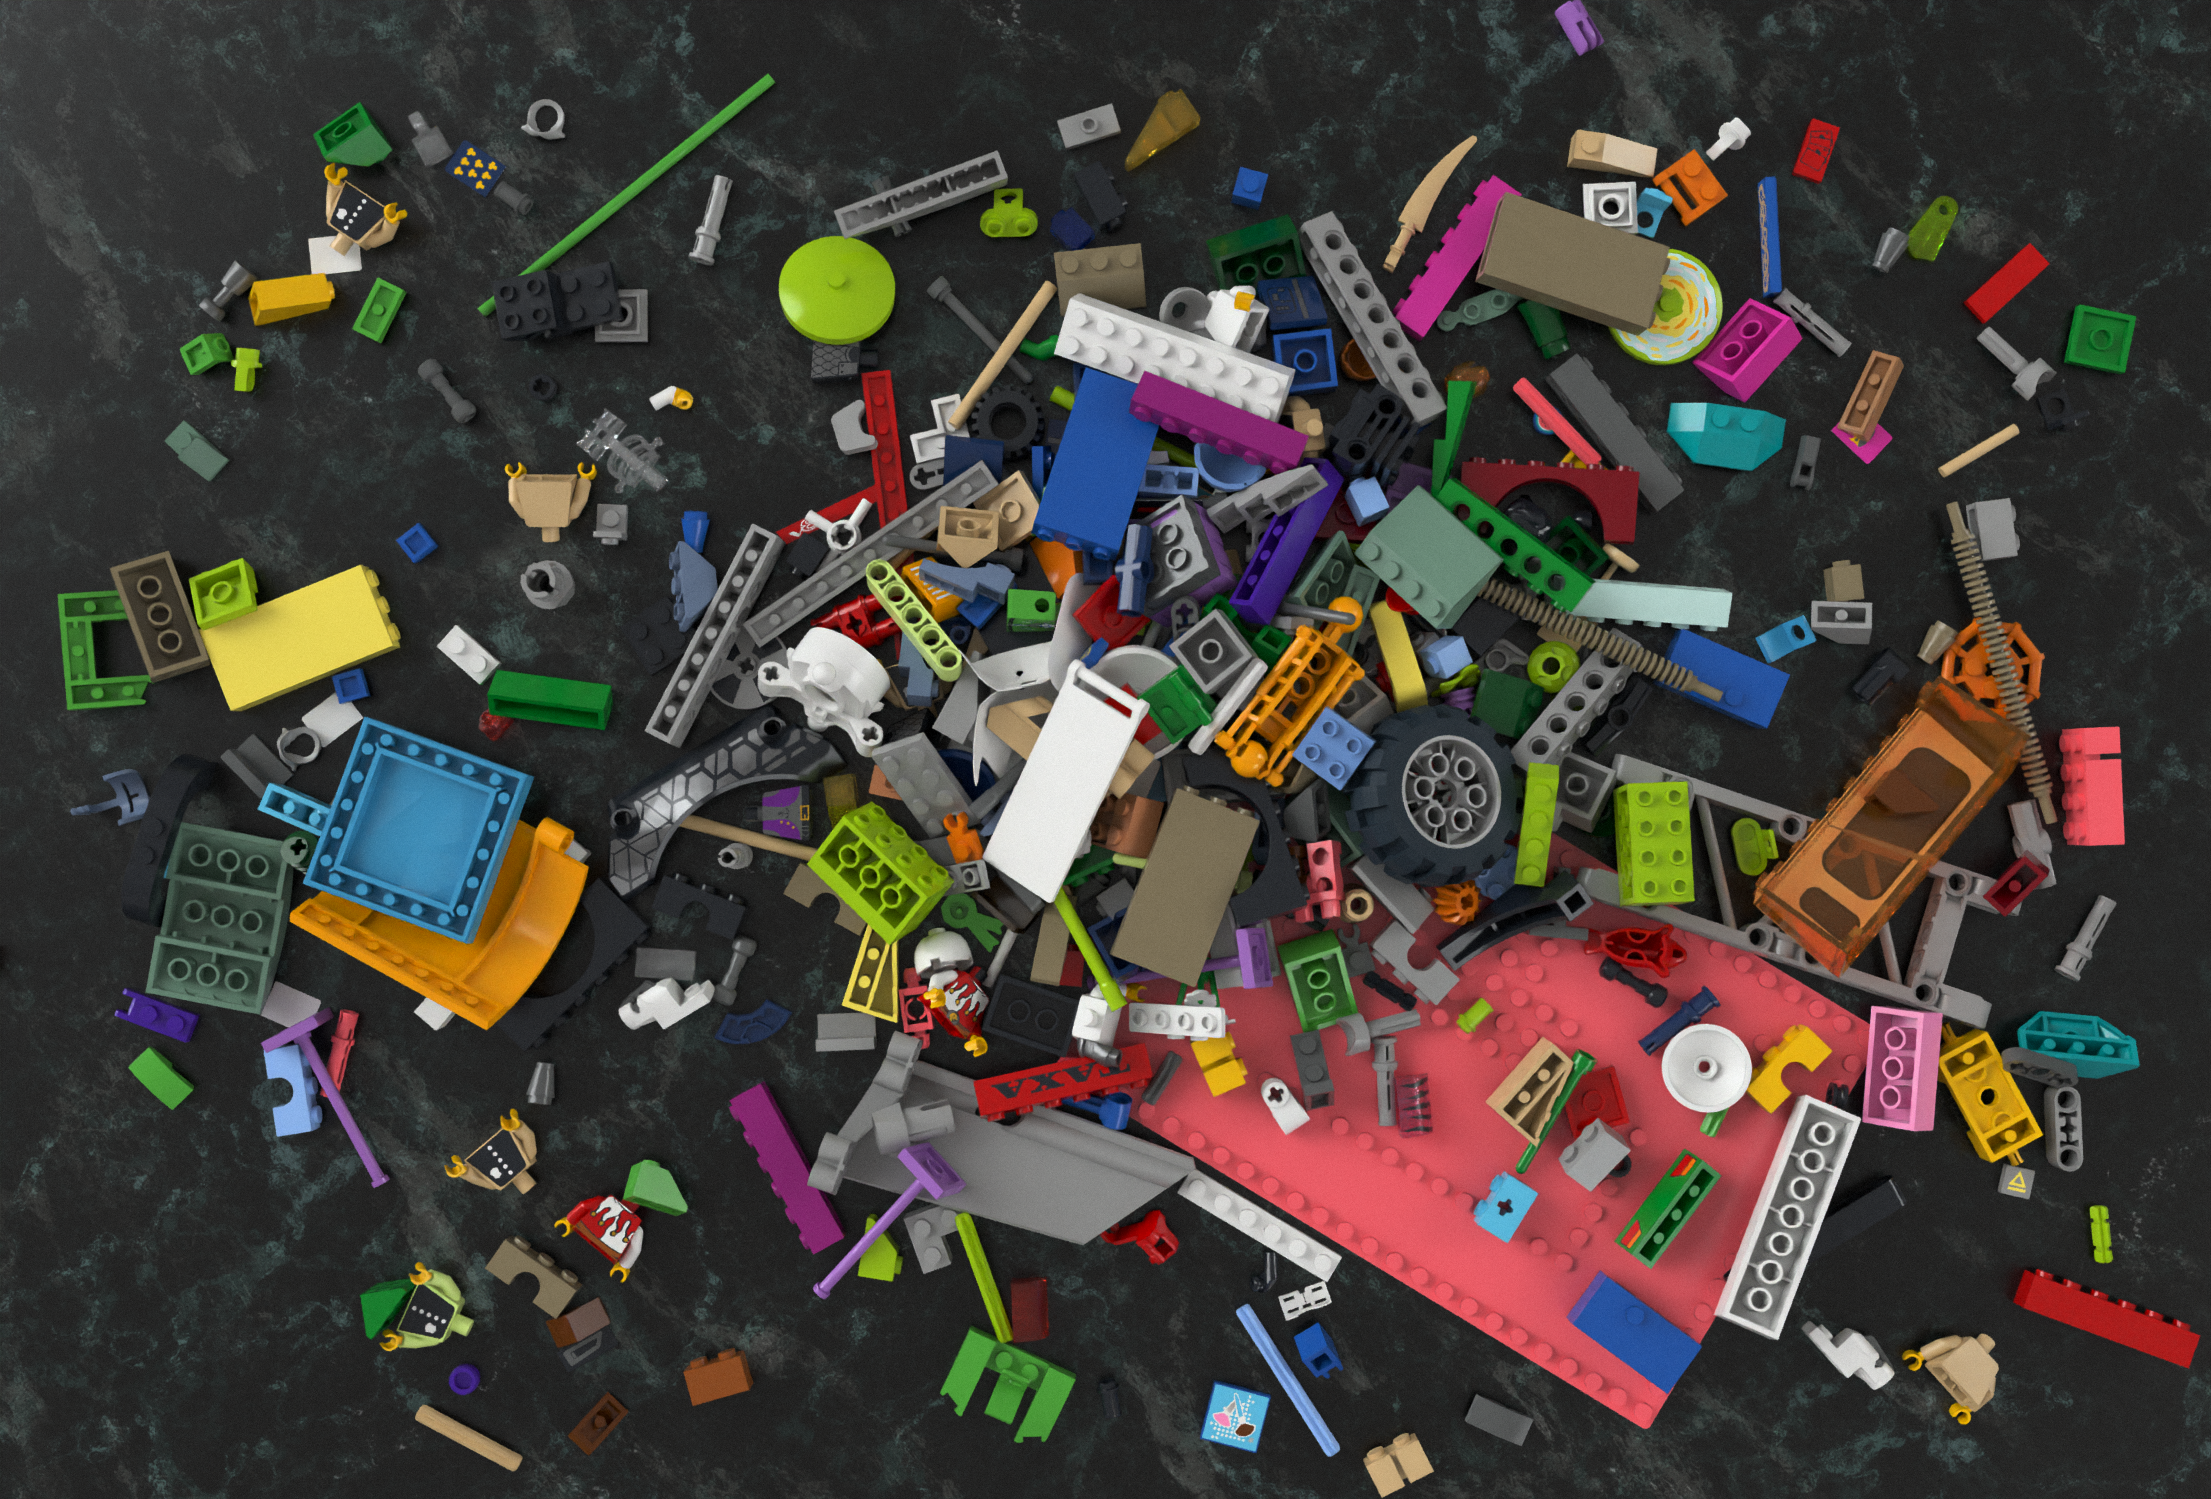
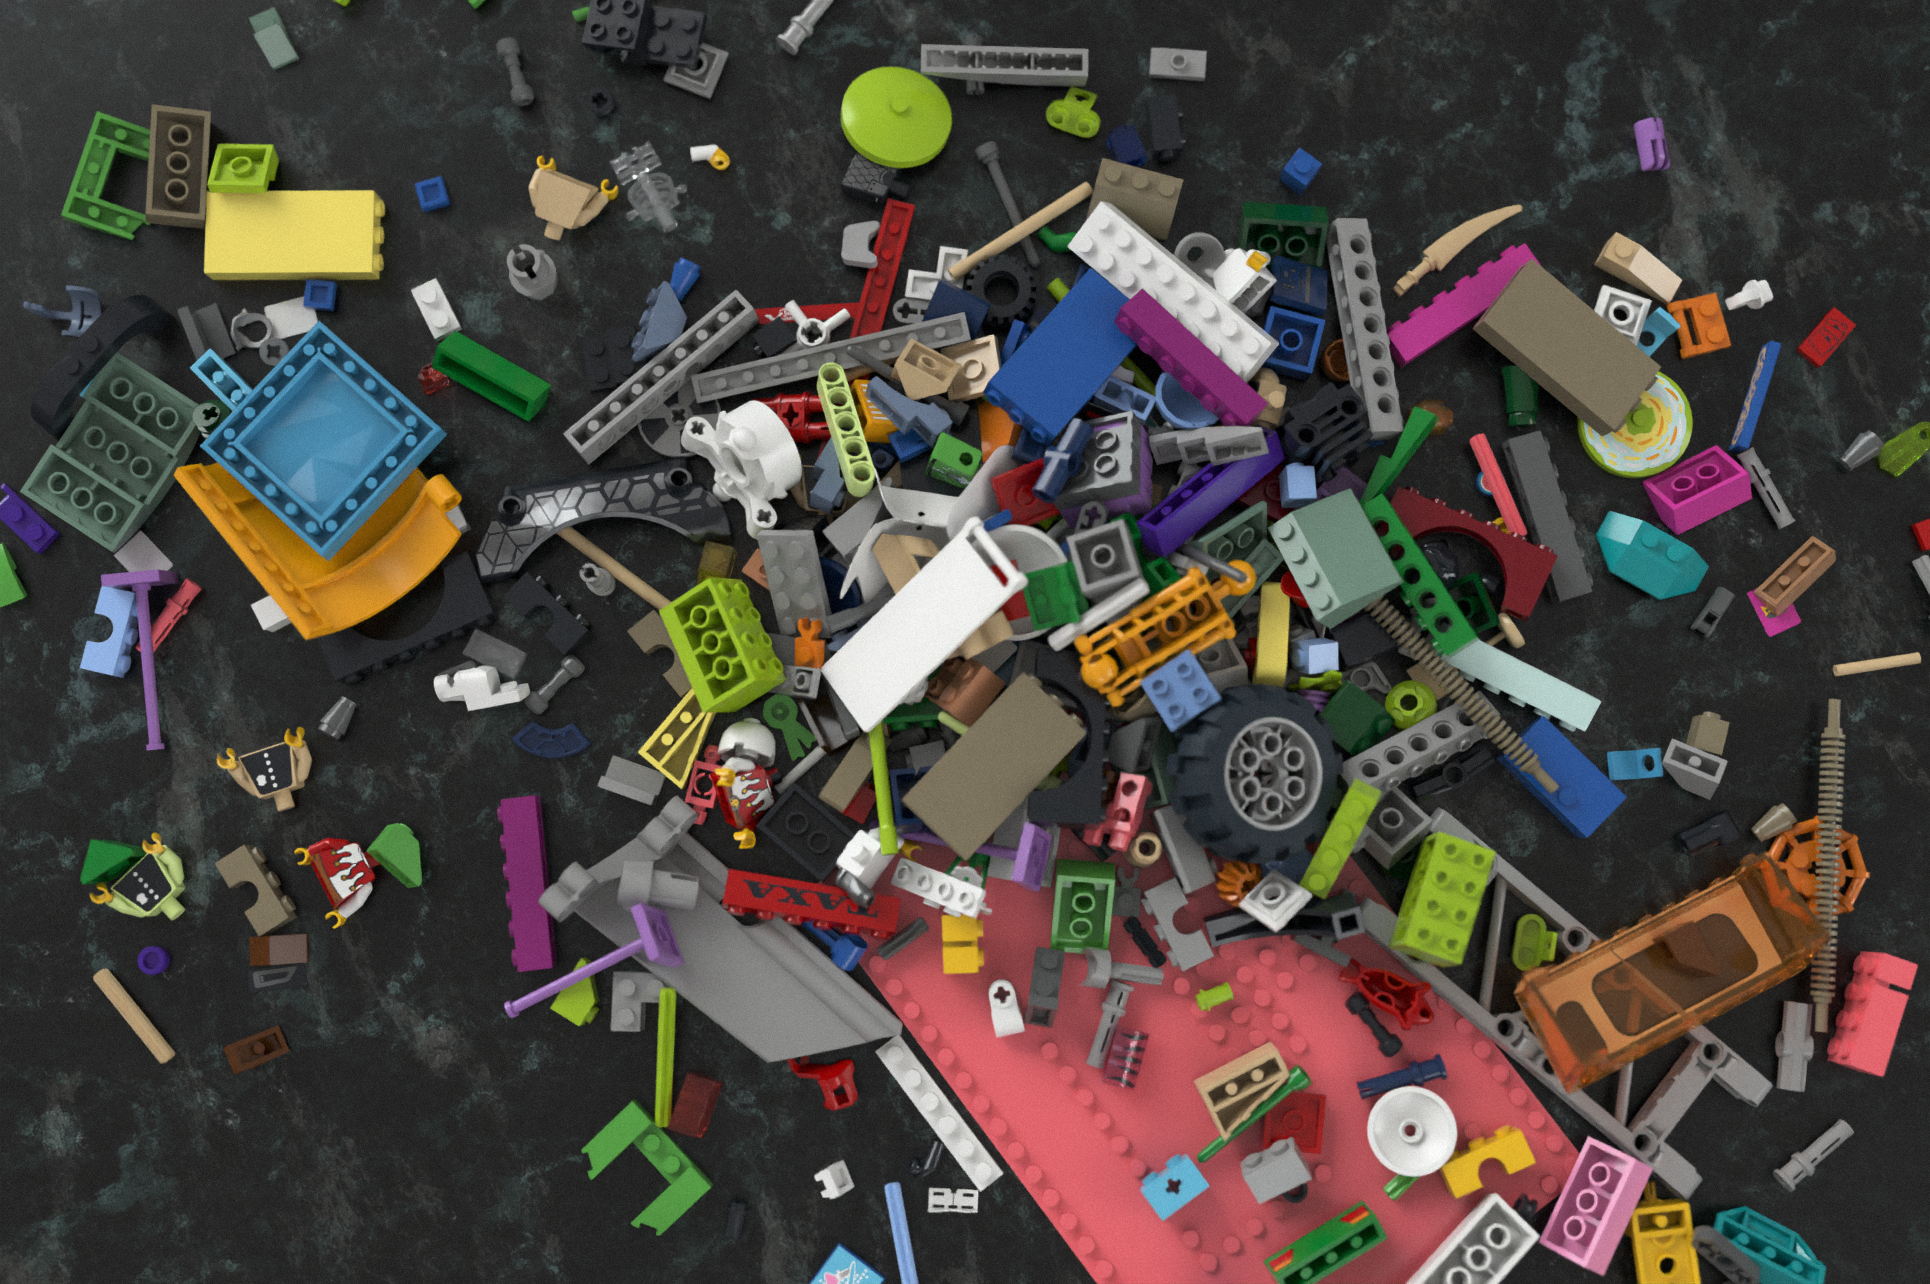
camera: 20 degrees right, 5 degrees down
(331, 753) = (277, 348): none -> light grey wheel
(611, 523) = (611, 244): light grey bracket -> none
(718, 1376) = (384, 1051): dark orange brick -> none
(785, 813) = (659, 560): torso -> none
(1006, 1396) = (641, 1177): bright green bracket -> none
(1167, 123) = (1247, 88): clear yellow slope -> none
(1188, 1325) = (836, 1180): none -> white tile
(1318, 1351) = (946, 1252): blue brick -> none
(1478, 309) = (1466, 358): sand green piece -> none
(1504, 917) = (1279, 911): none -> white piece
(1993, 529) = (1865, 740): light grey brick -> none
(2016, 883) = (1767, 1074): dark red slope -> none

